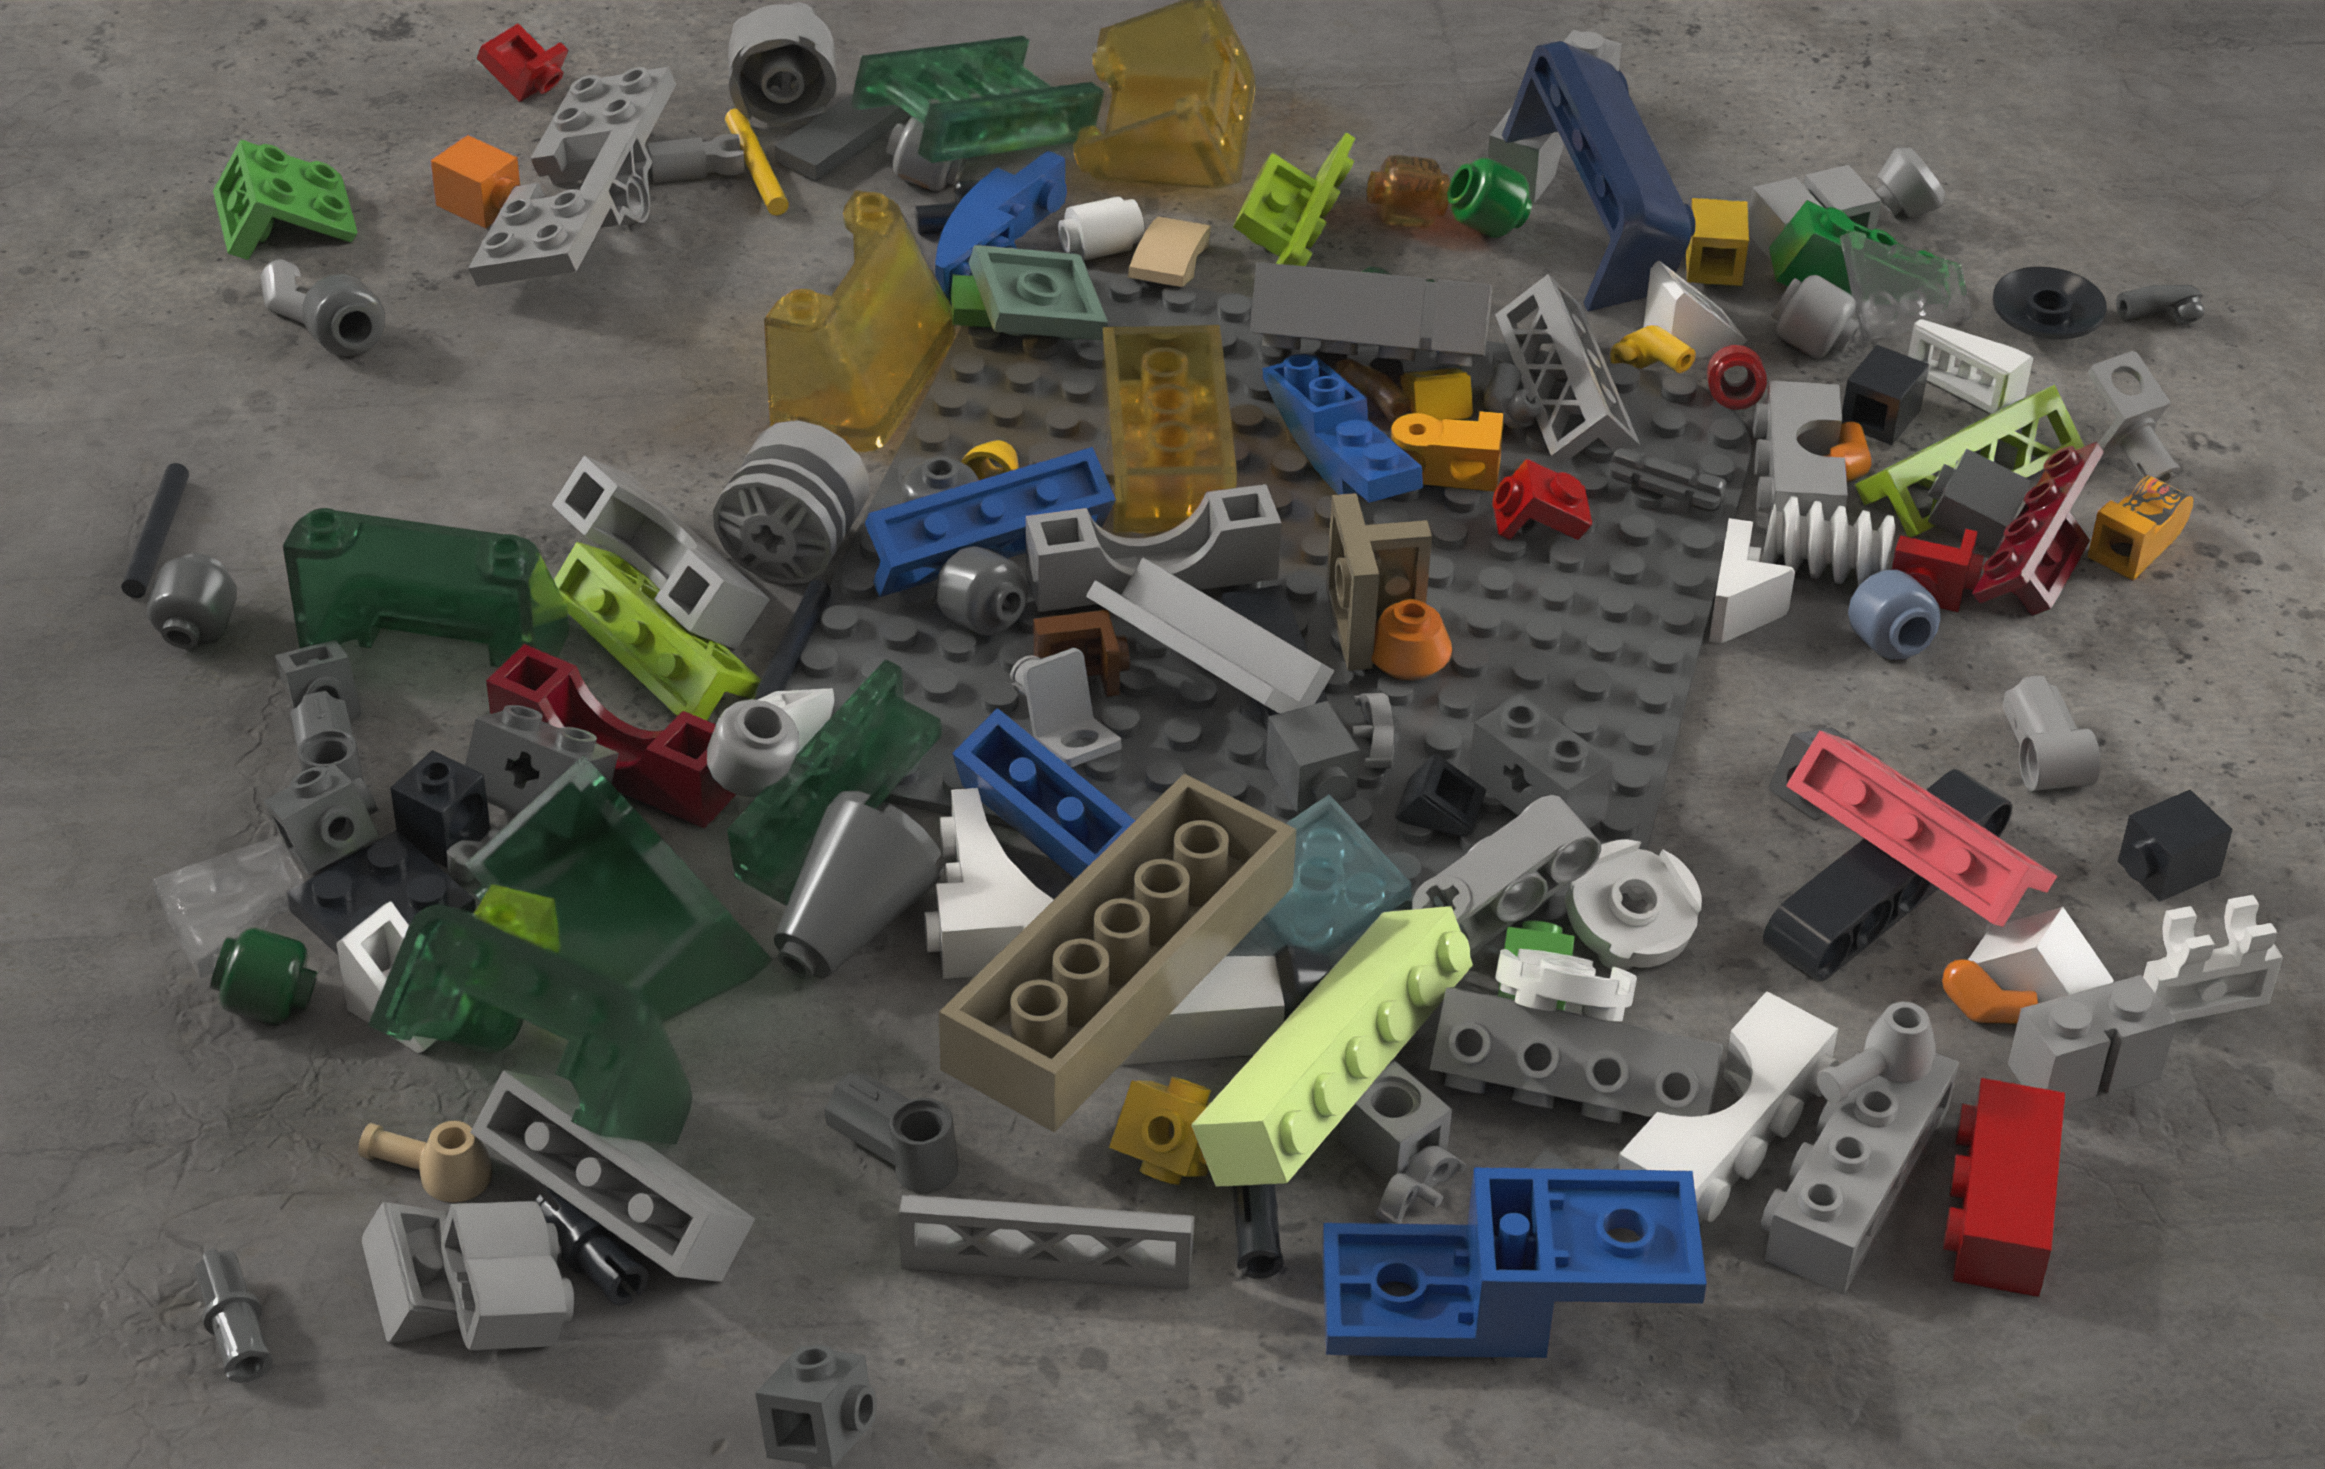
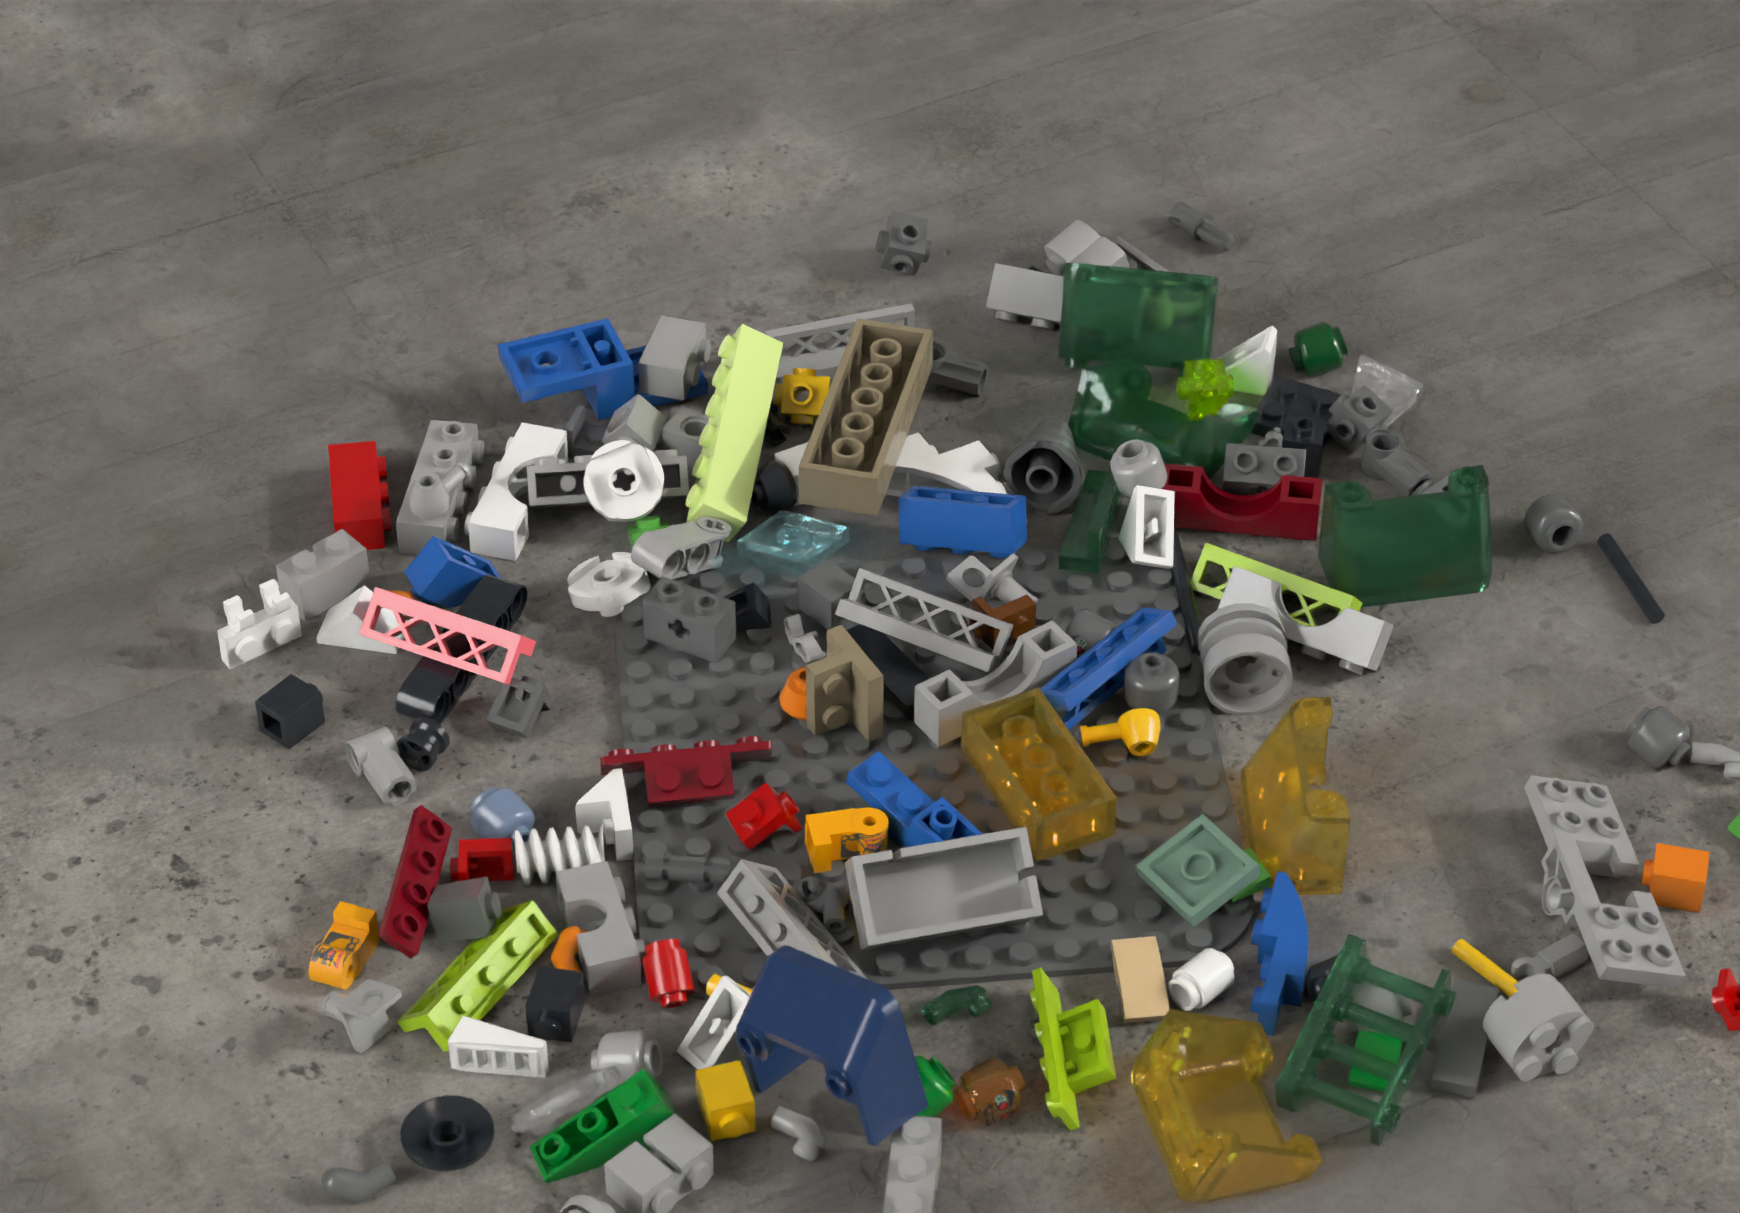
camera: 160 degrees right, 0 degrees up
(1380, 1221) = (673, 358): none -> light grey piece
(1492, 1135) = (636, 422): none -> light grey brick
(1621, 590) = (688, 773): none -> dark red bracket
(1872, 974) = (446, 573): none -> blue slope
(1983, 744) = (423, 744): none -> black wheel

